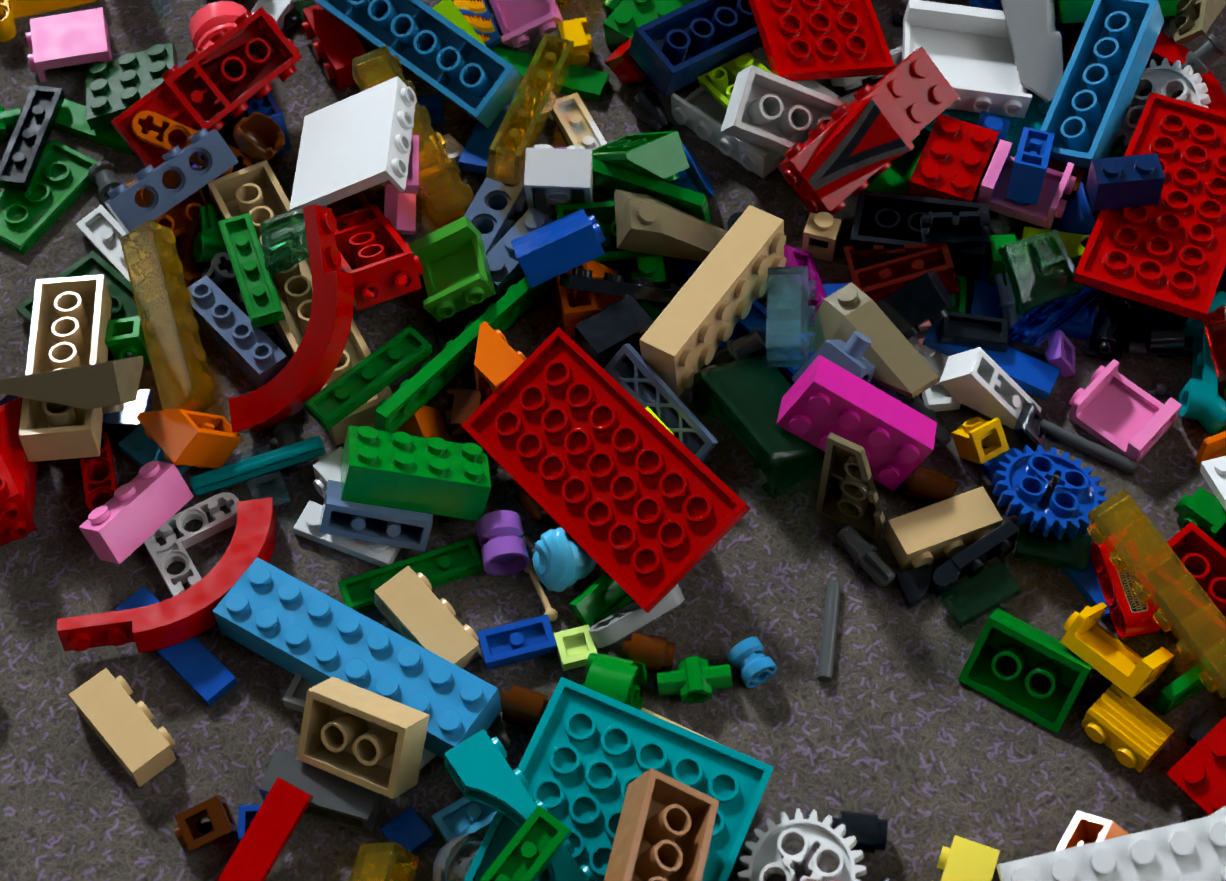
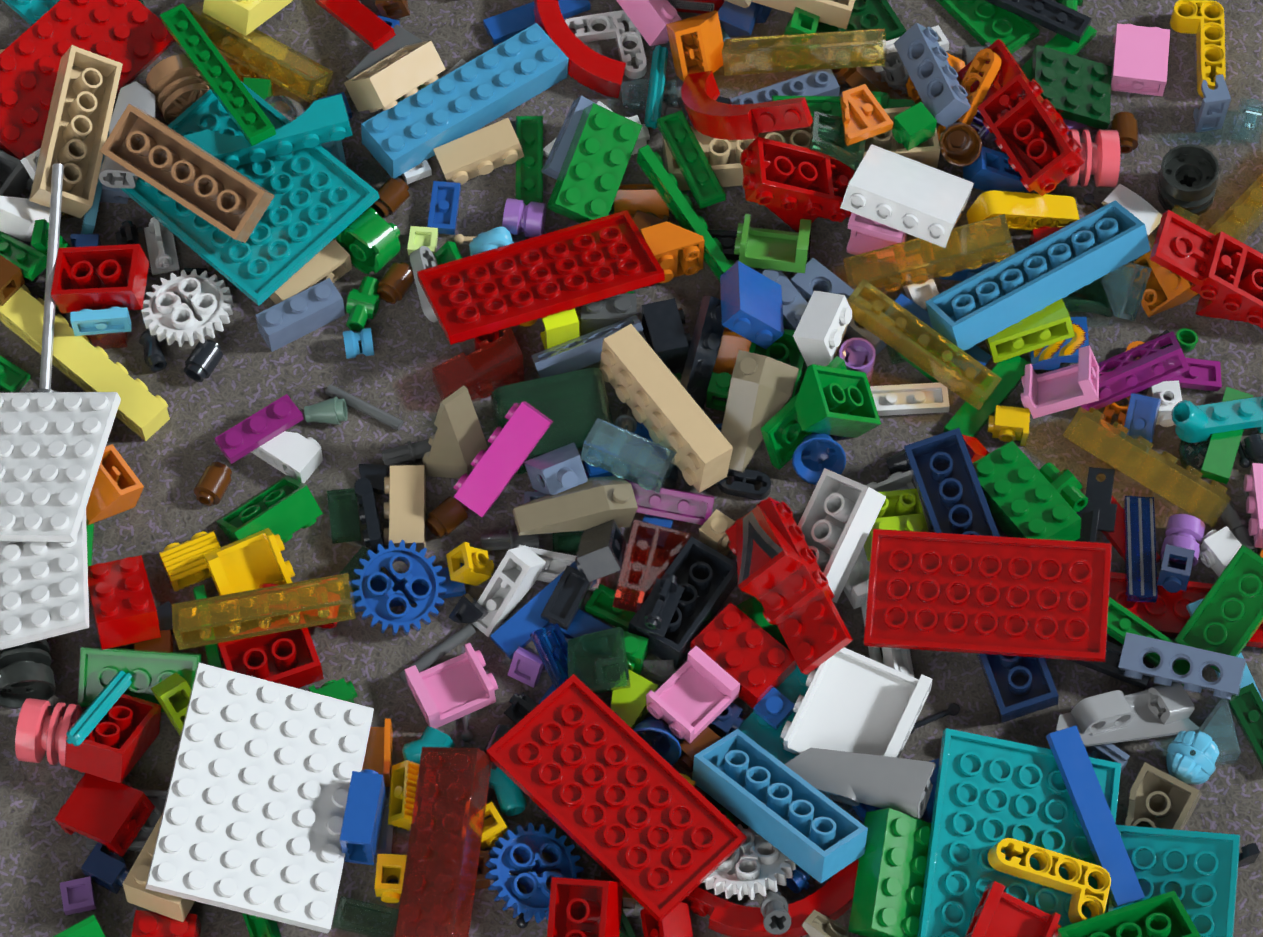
camera: 110 degrees right, 5 degrees up
(174, 32) = (1128, 131): none -> reddish brown brick
(251, 177) = (914, 126): none -> green brick
(259, 217) = (862, 115): none -> orange wing
(315, 80) = (1024, 210): none -> yellow beam
(738, 729) = (300, 314): none -> sand blue brick
(759, 534) = (483, 370): none -> clear red wedge
(859, 662) = (328, 411): none -> sand green cone
(935, 684) = (292, 455): none -> white slope
(936, 708) = (259, 428): none -> magenta plate
(1018, 749) = (213, 483): none -> reddish brown brick
(1029, 166) = (706, 698): blue slope -> none
(1125, 181) = (640, 743): dark blue brick -> none

